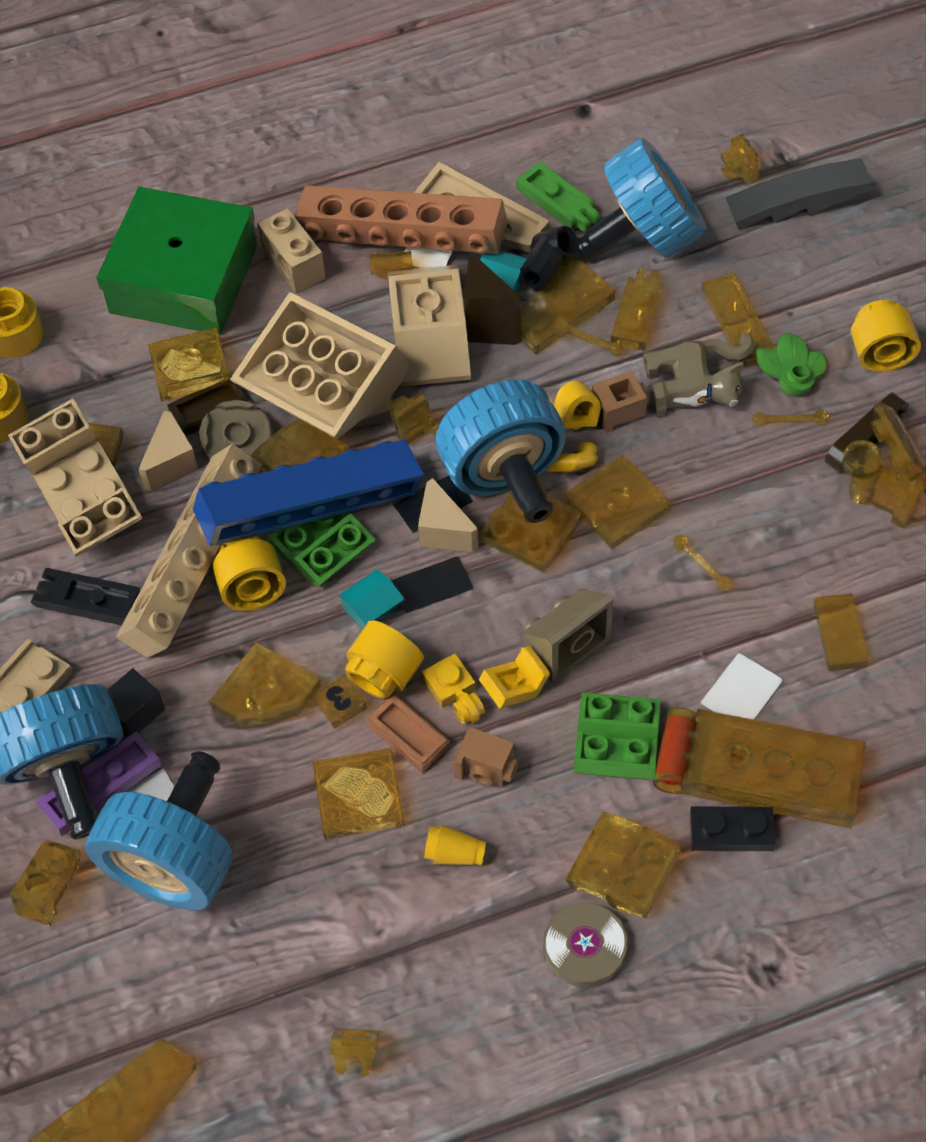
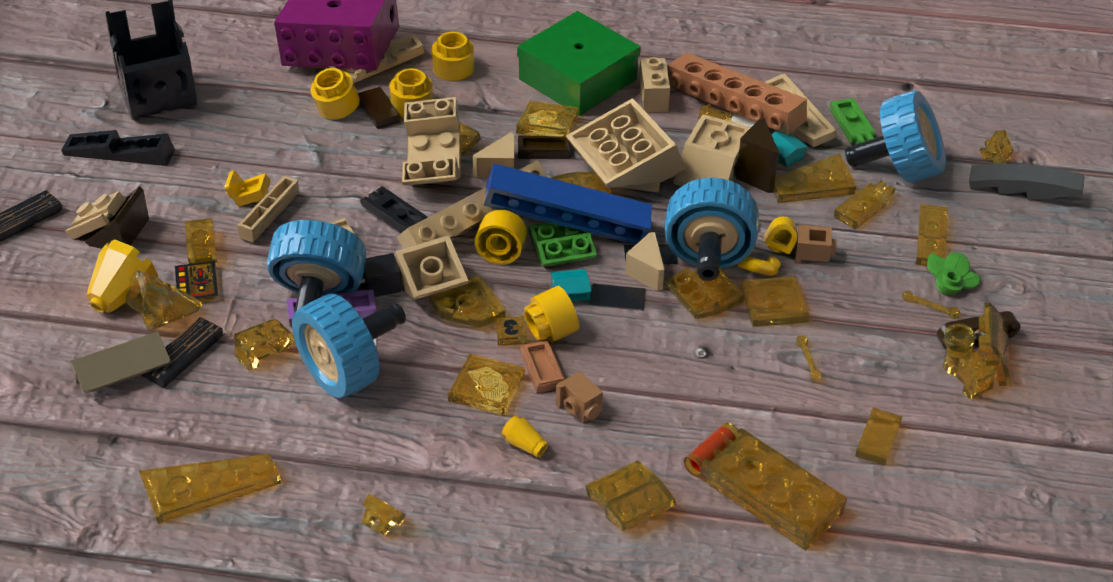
camera: 25 degrees right, 15 degrees down
(196, 669) = (430, 268): none -> tan slope
(236, 424) = (553, 159): dark tan tile -> none
(411, 417) = (661, 198): clear yellow tile -> none
(452, 682) = (590, 354): yellow plate -> none
(516, 680) = (631, 366): yellow bracket -> none
(547, 254) = (820, 148): black piece -> none
(561, 326) = (803, 191): clear yellow hinge -> none
(570, 631) = (685, 354): dark tan slope -> none
(585, 944) = (572, 529): dark tan tile -> none
(617, 736) = (678, 425): bright green slope -> none
(692, 381) = (875, 250): dark tan animal -> none
(732, 828) = (720, 511): black plate -> none
(742, 689) = (788, 438): white sticker -> none
(885, 336) = (1028, 279): yellow piece -> none

